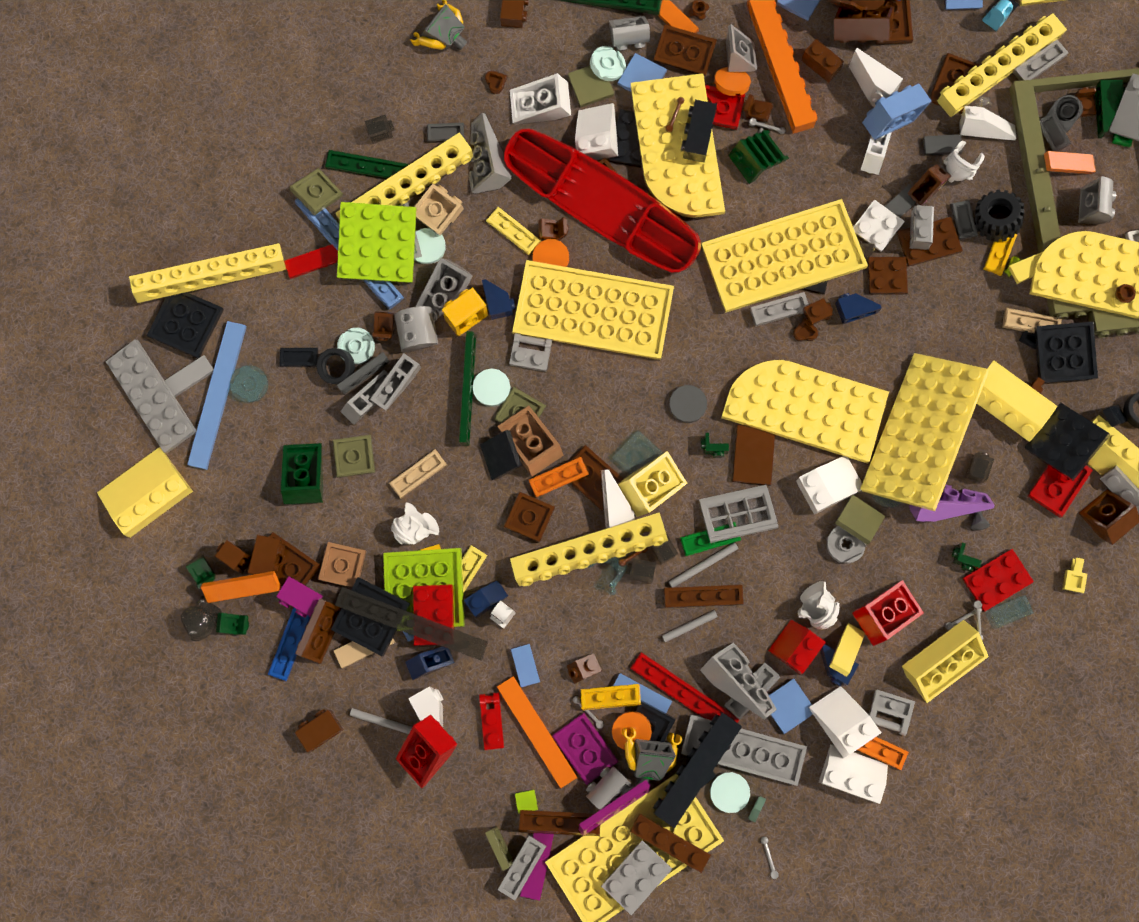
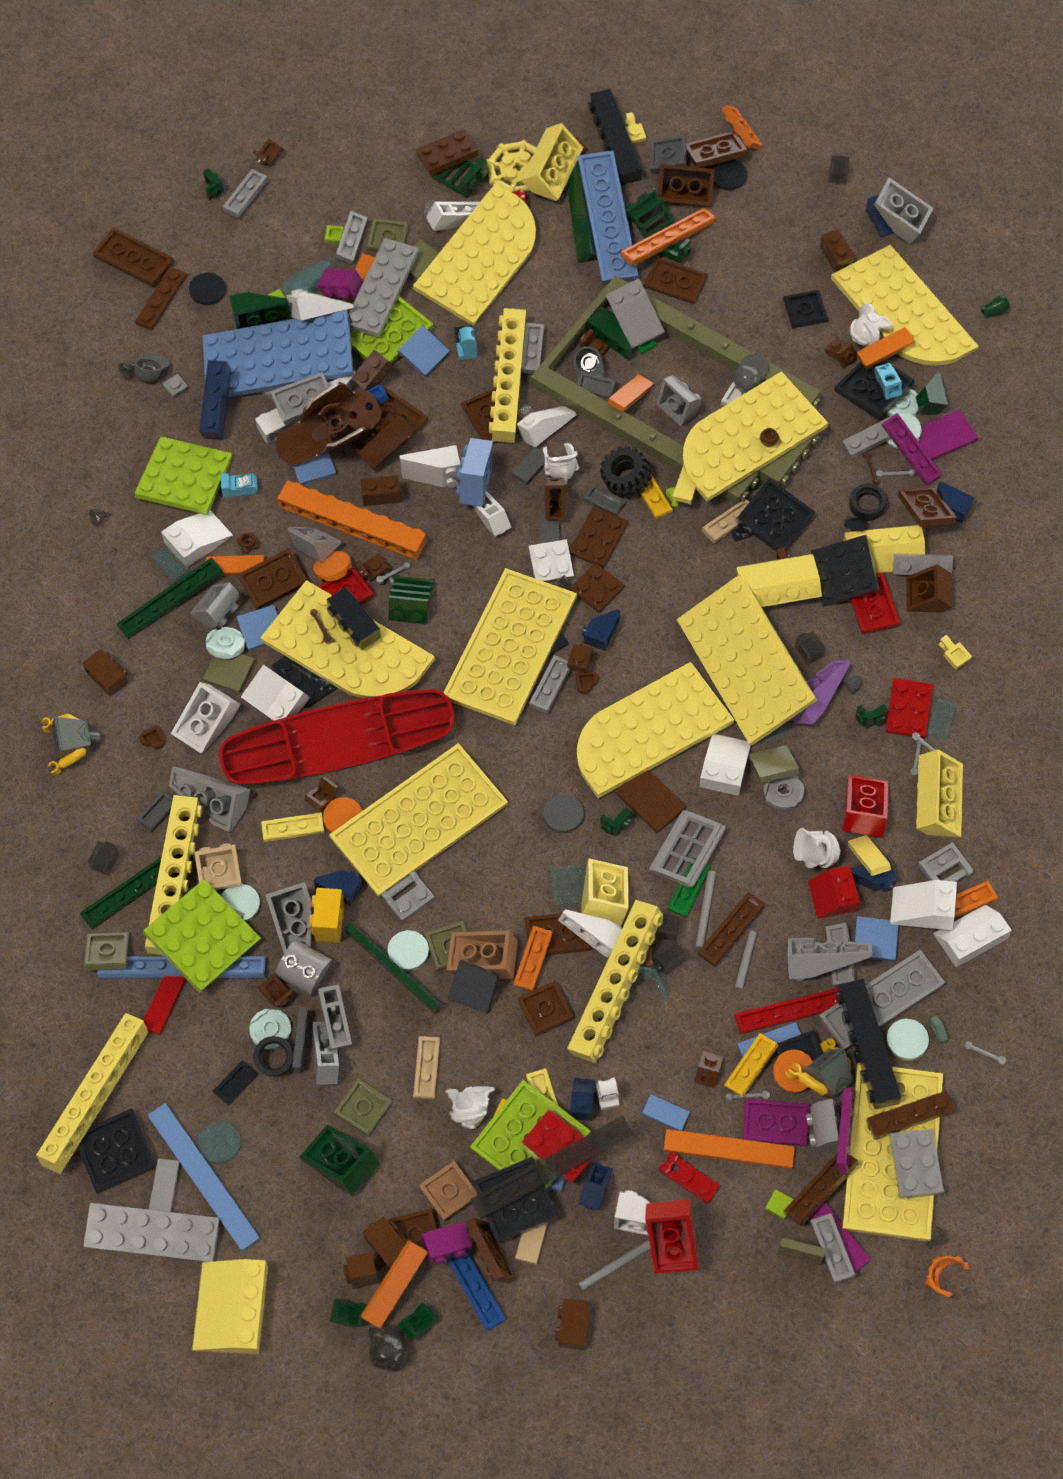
camera: 50 degrees left, 15 degrees down
(921, 227) = (584, 530): light grey brick -> none

